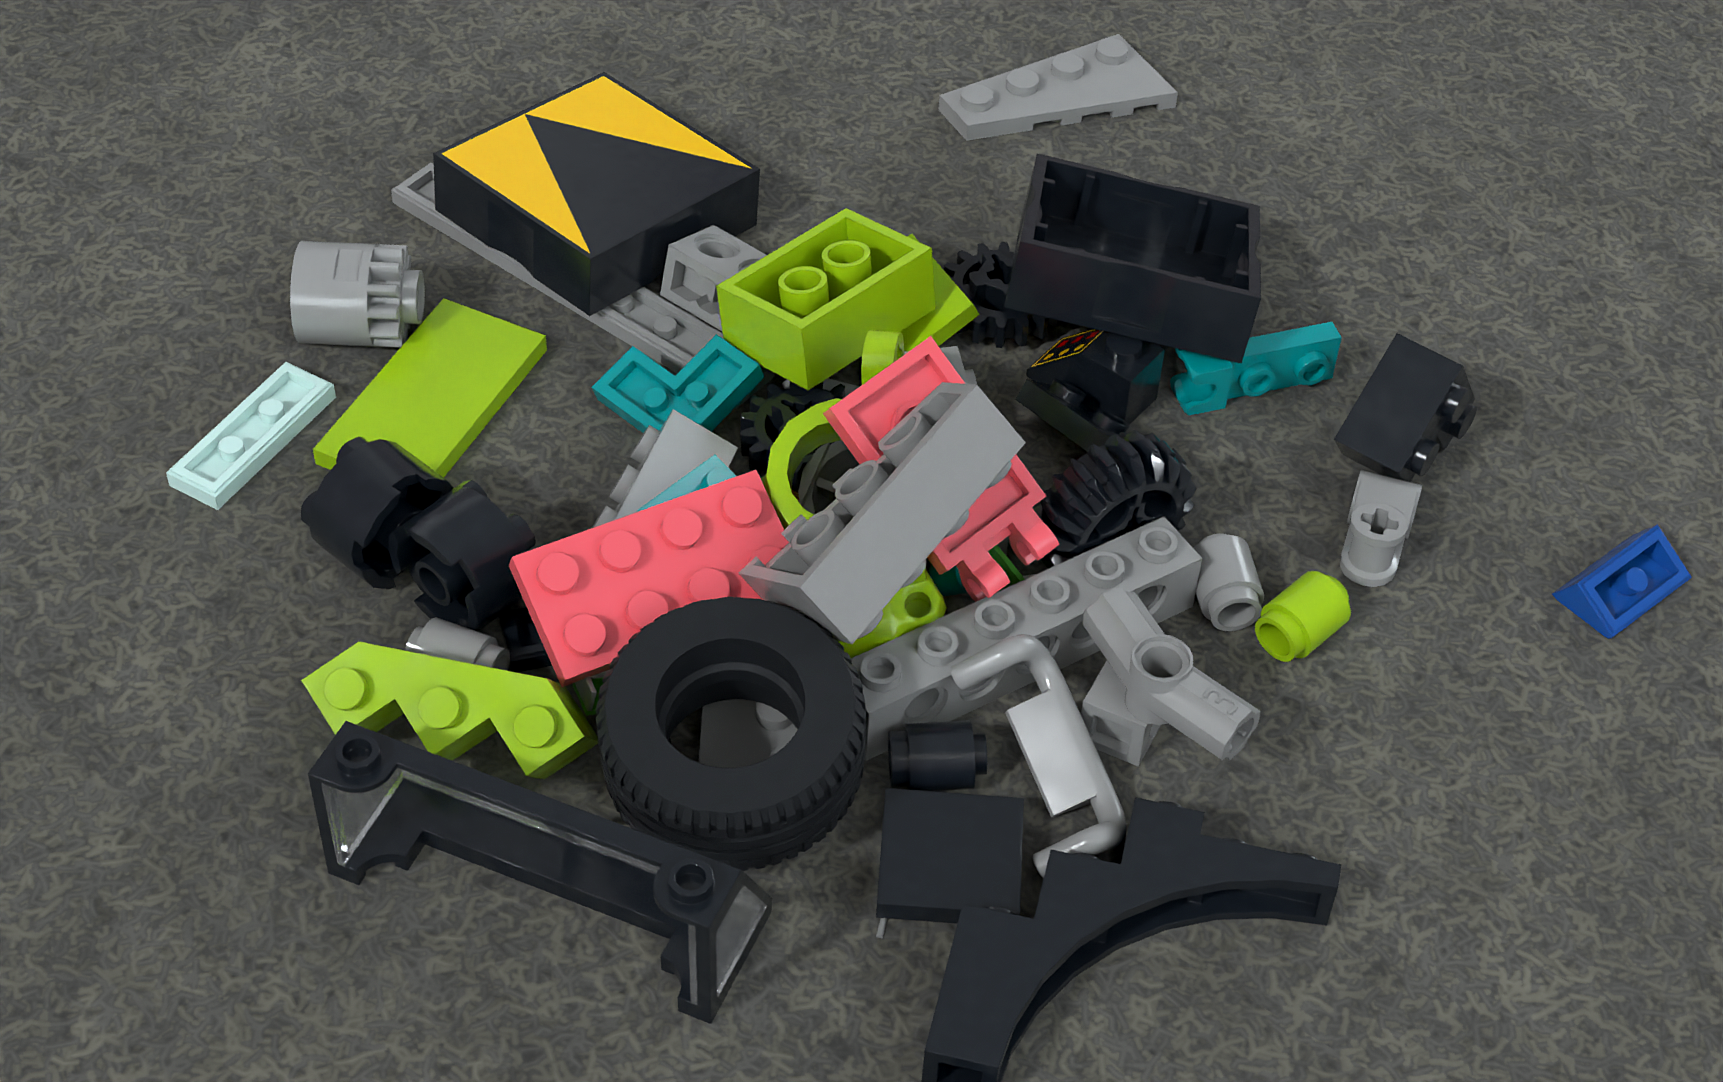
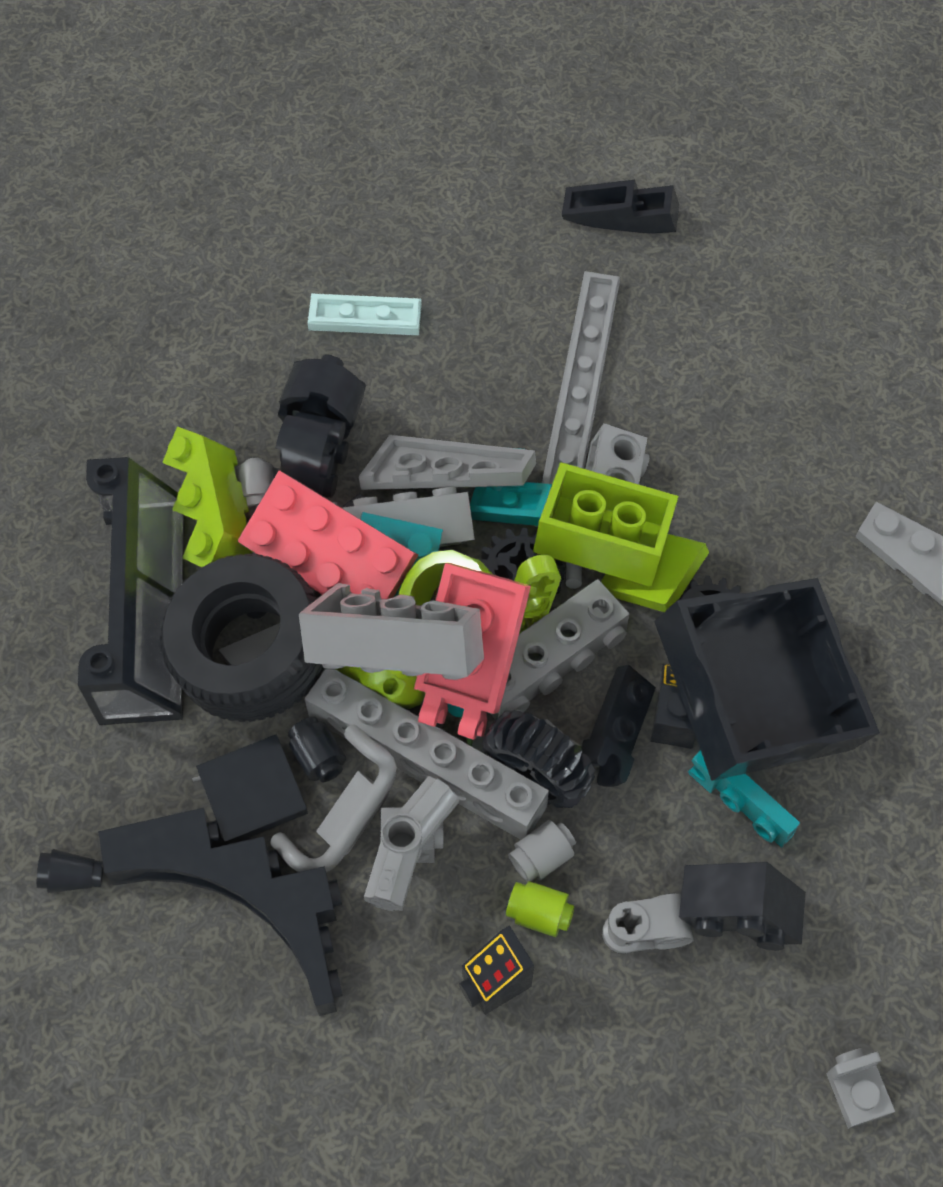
camera: 65 degrees right, 15 degrees up
(326, 111) = (622, 207): none -> black slope
(354, 294) = (475, 298): light grey gear -> none
(439, 387) = (440, 378): lime tile -> none
(589, 438) = (432, 463): none -> light grey wing
(593, 189) = (640, 365): black tile -> none
(1380, 674) = (497, 972): none -> black slope
(1625, 582) = (701, 1104): blue slope -> none
(1664, 437) = (859, 1088): none -> light grey bracket

